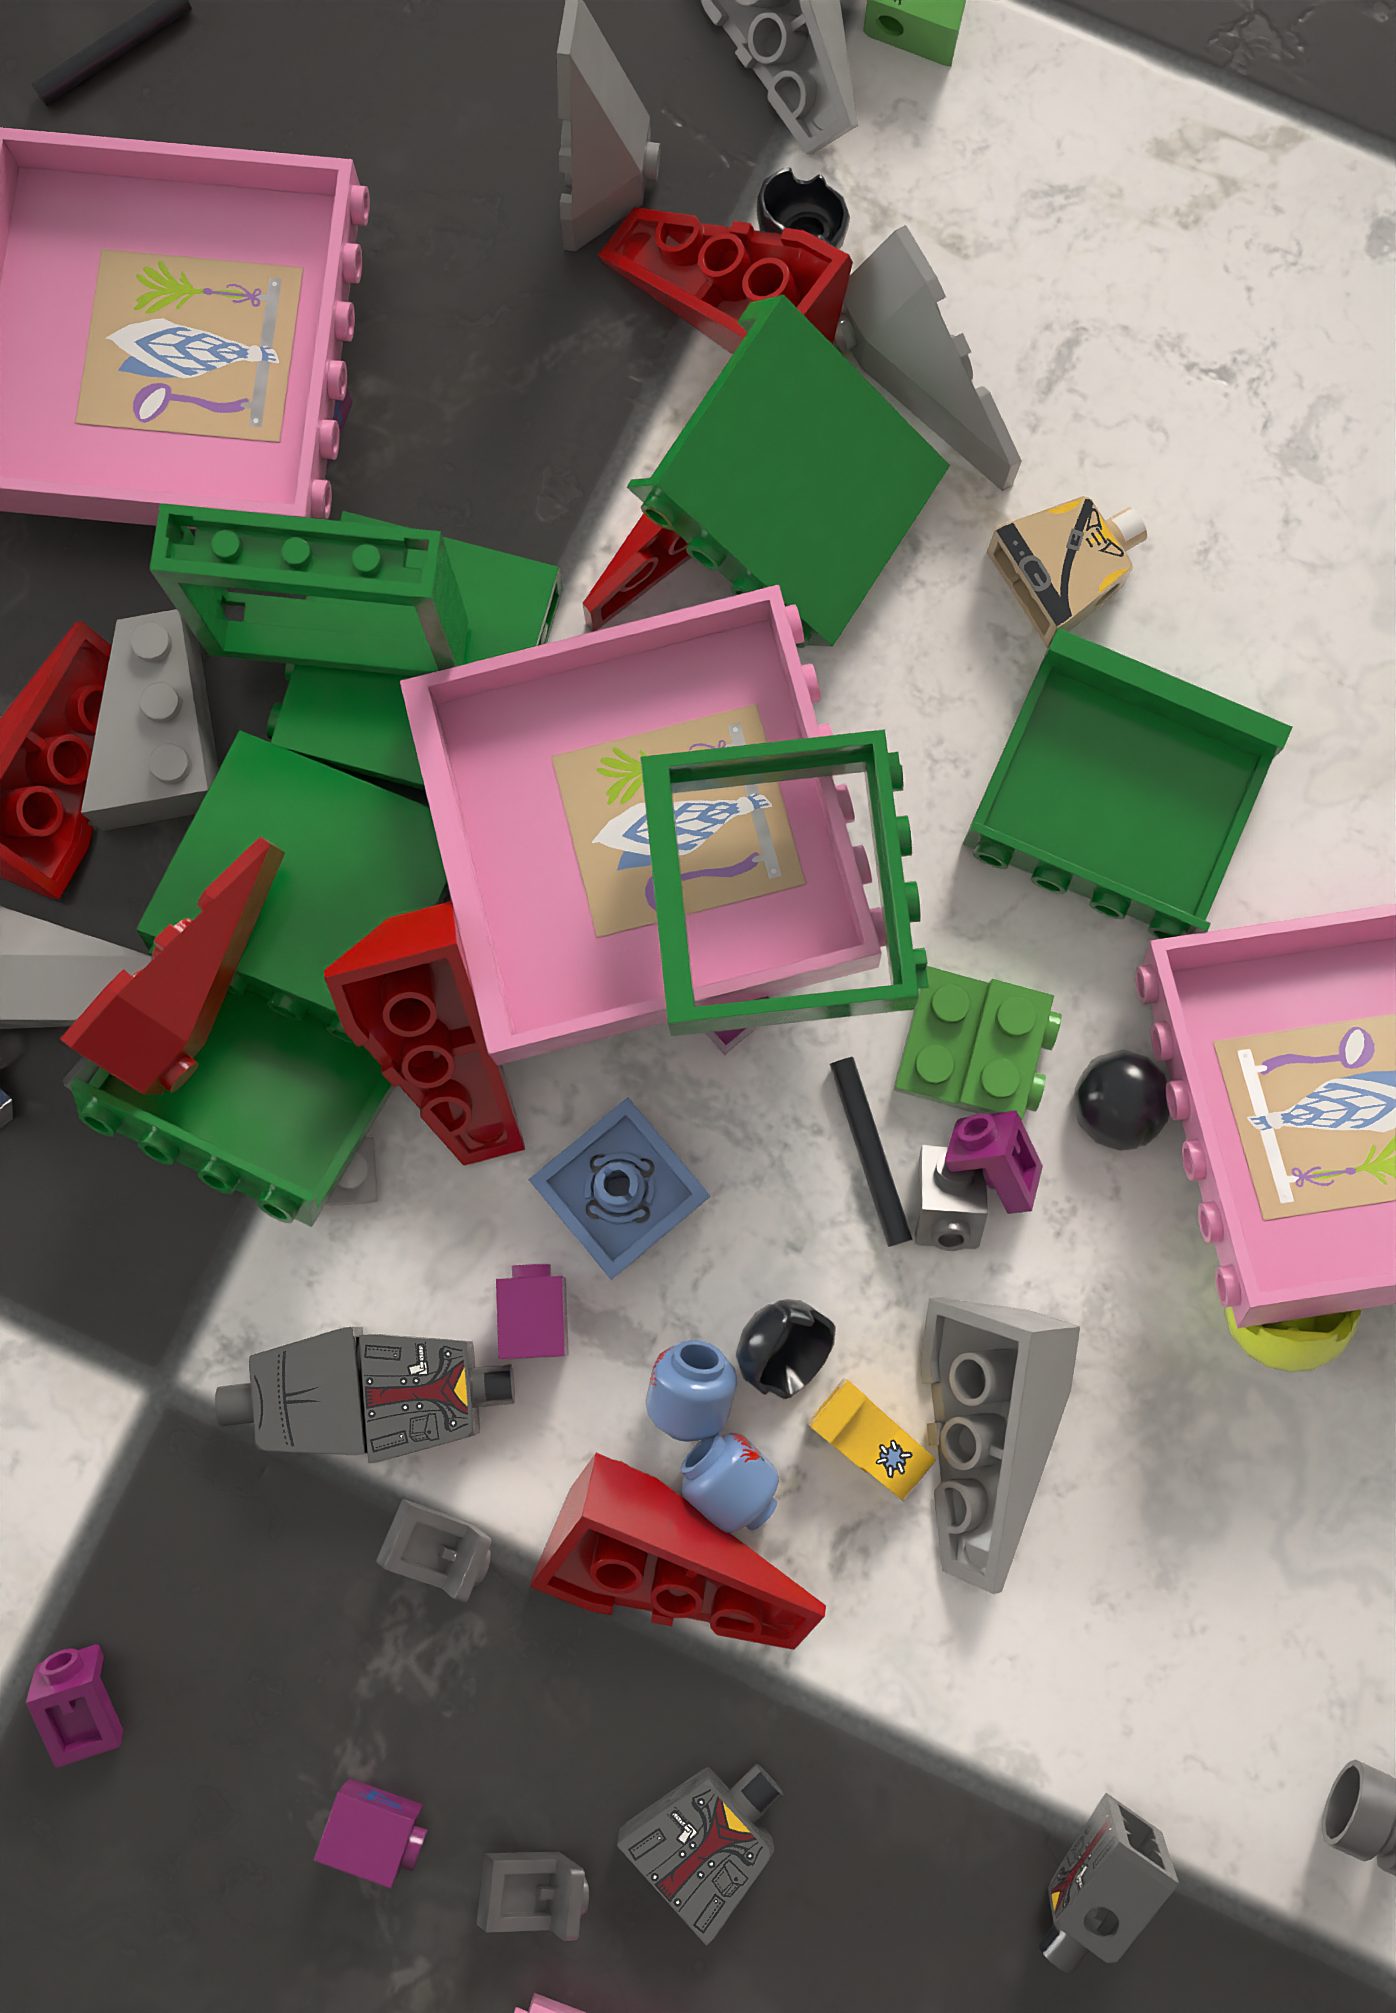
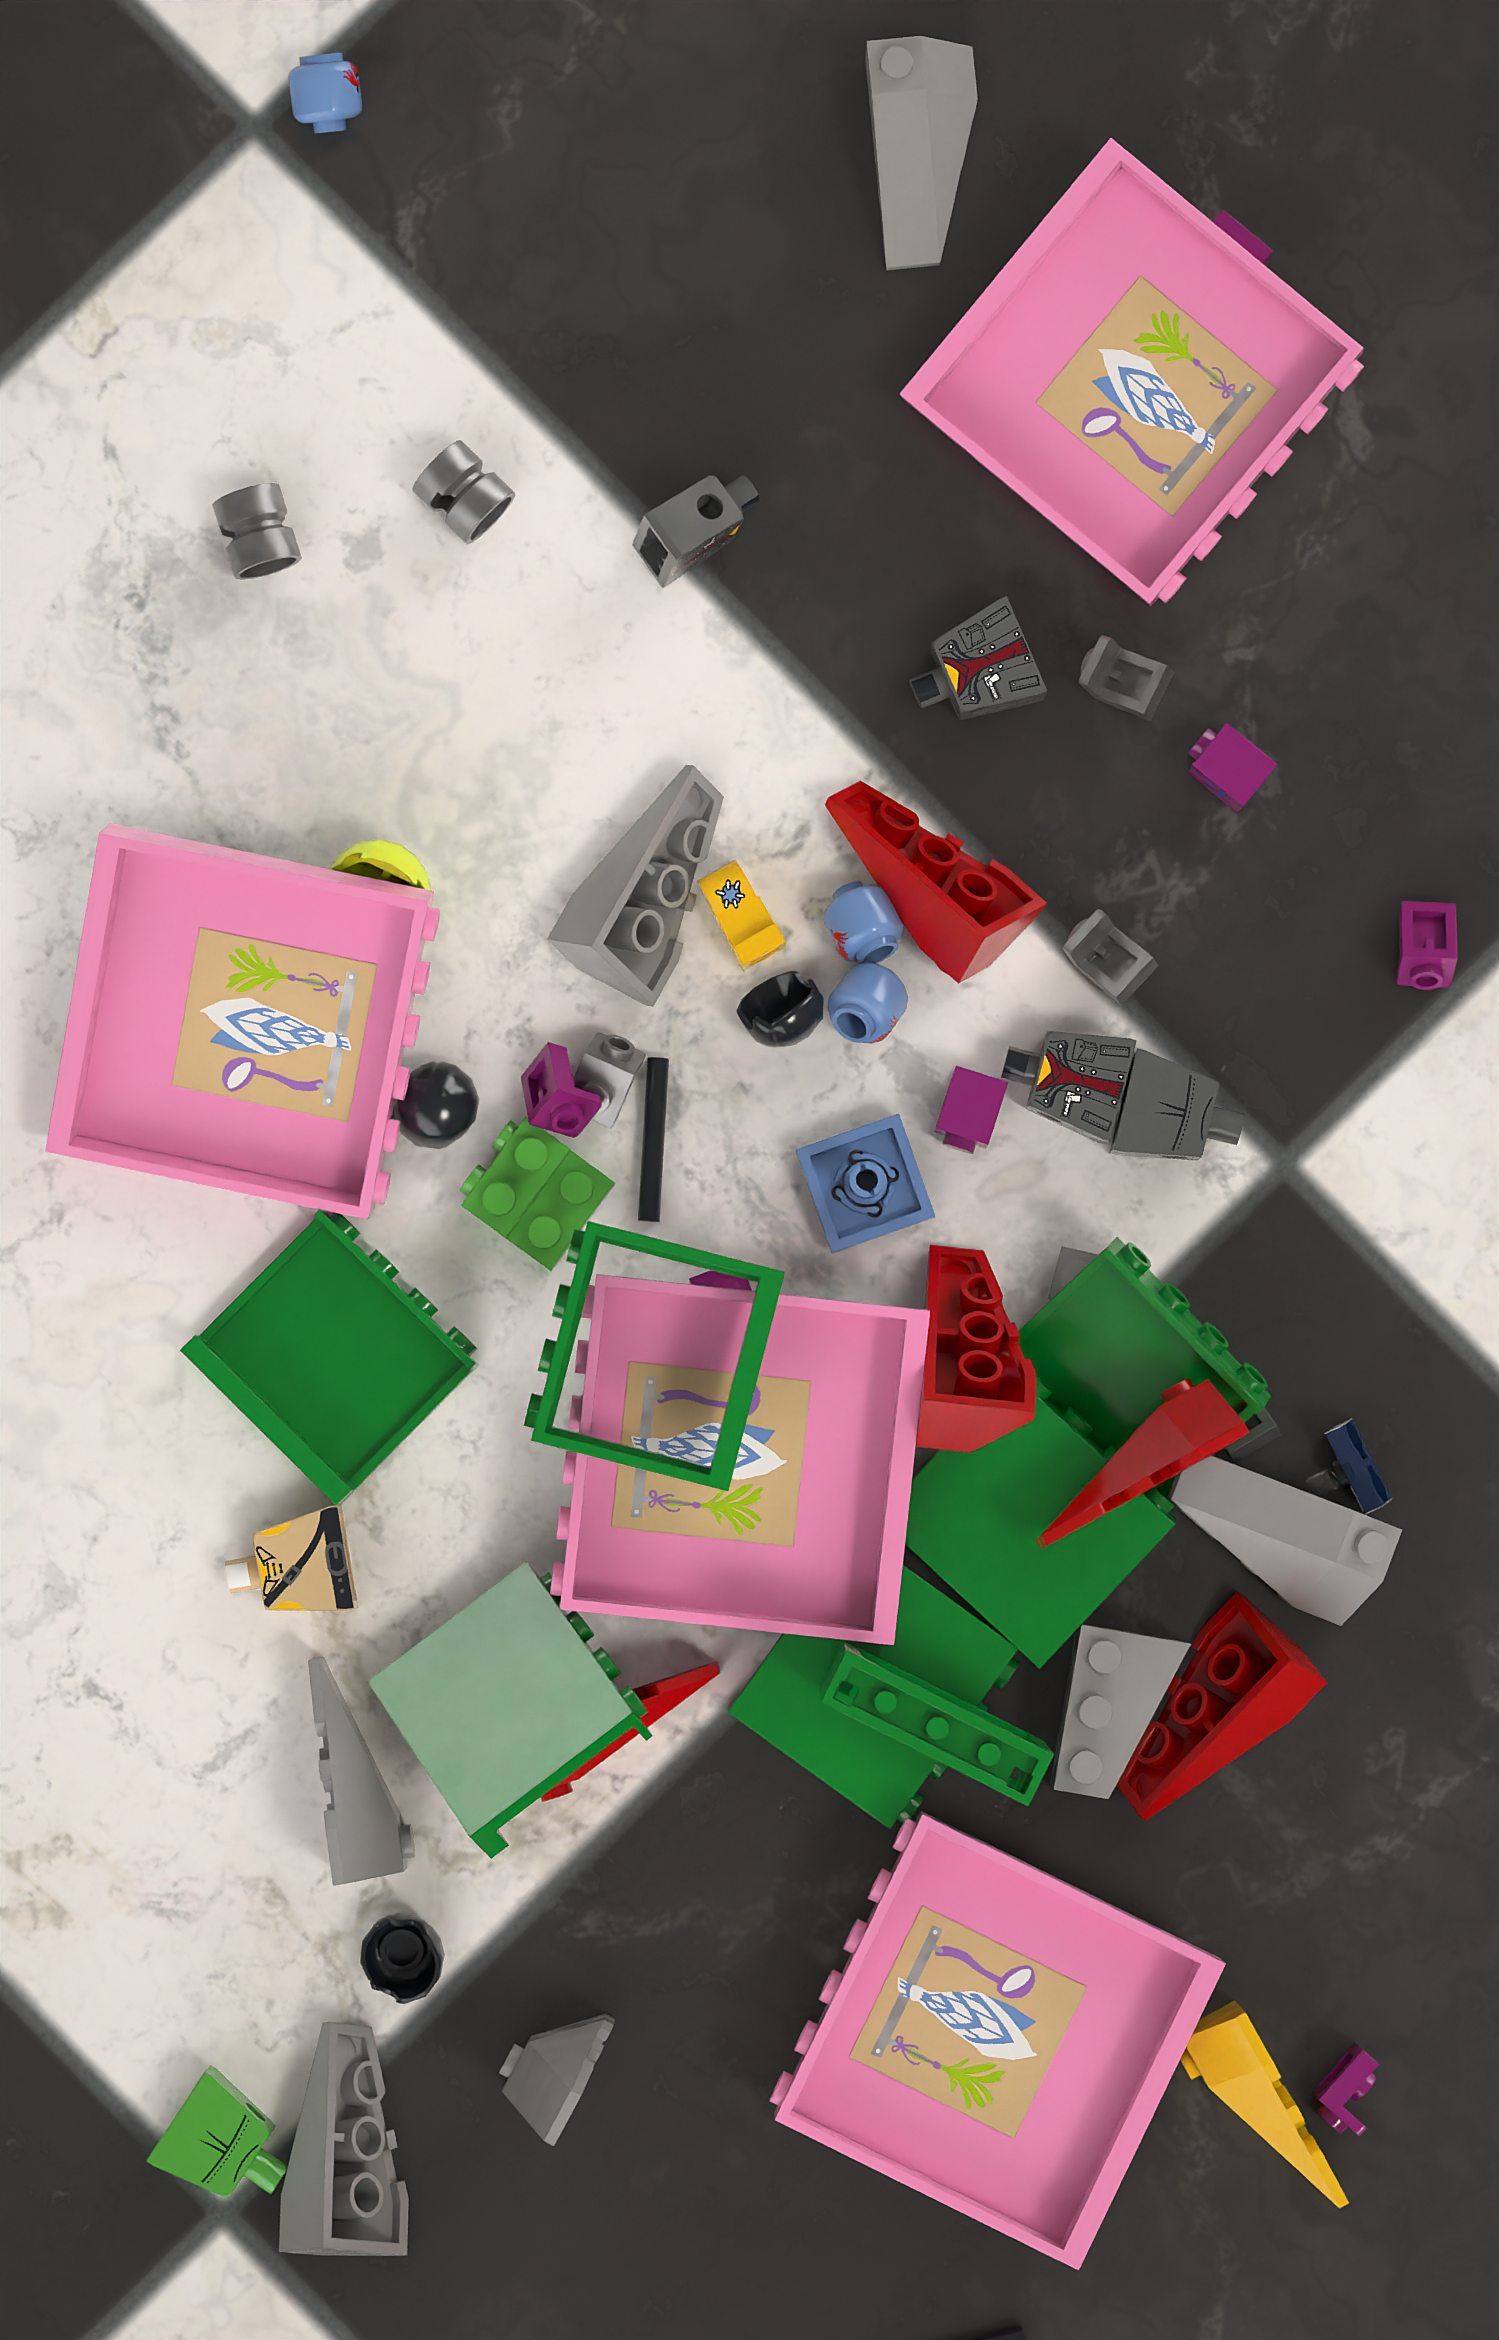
camera: 160 degrees left, 5 degrees up
(717, 270) = (484, 1920): red wedge -> none

